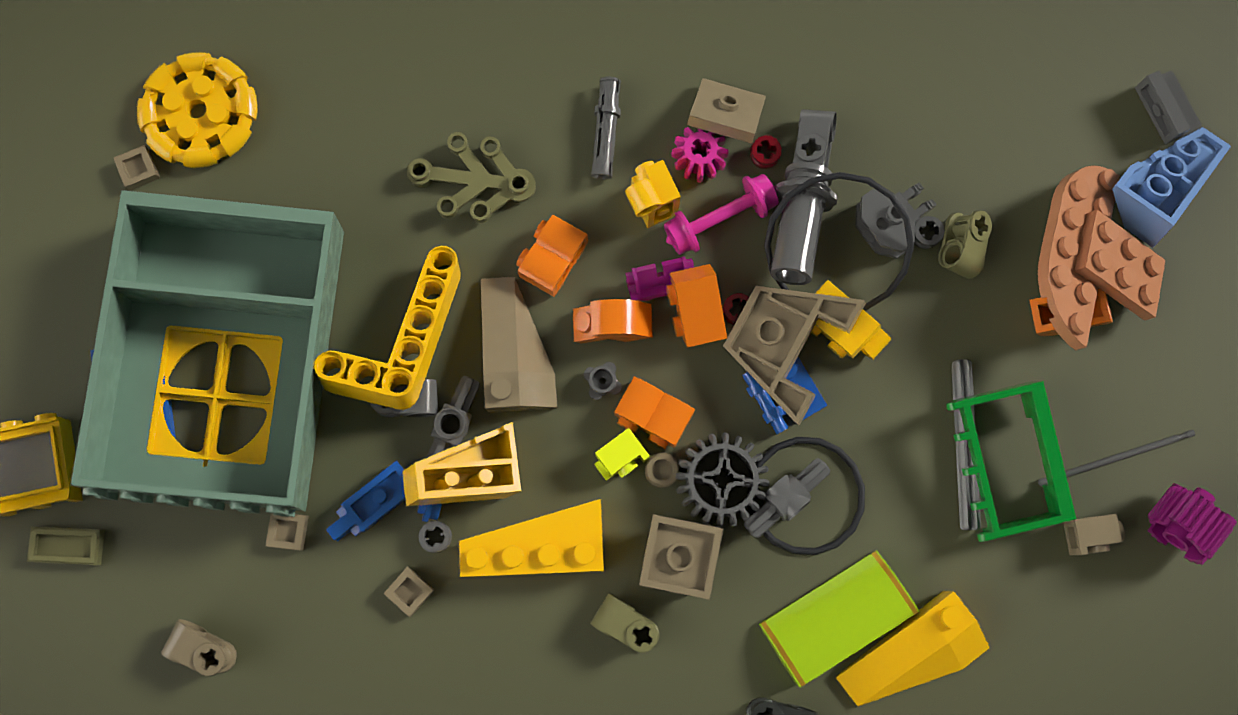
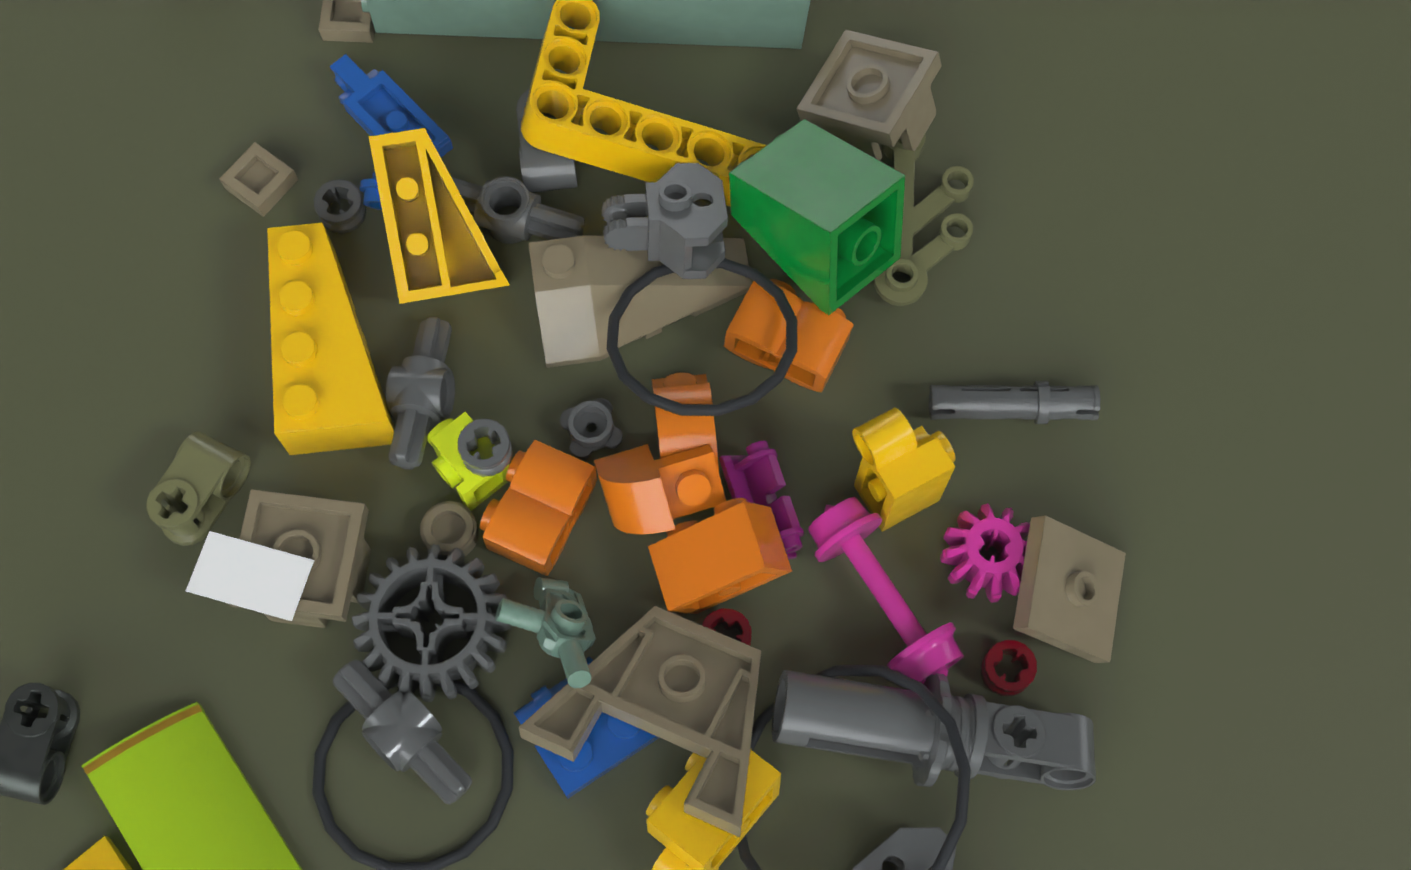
camera: 85 degrees right, 10 degrees down
(397, 186) = (873, 93): none -> dark tan panel
(480, 310) = (672, 221): none -> dark grey hinge
(482, 224) = (821, 211): none -> green slope
(573, 484) = (420, 393): none -> dark grey axle
(611, 310) = (702, 409): none -> black piece
(629, 430) = (468, 442): none -> dark grey bush
(657, 343) = (650, 493): none -> orange brick
(694, 584) = (250, 576): none -> white sticker
(730, 402) = (559, 623): none -> sand green piece

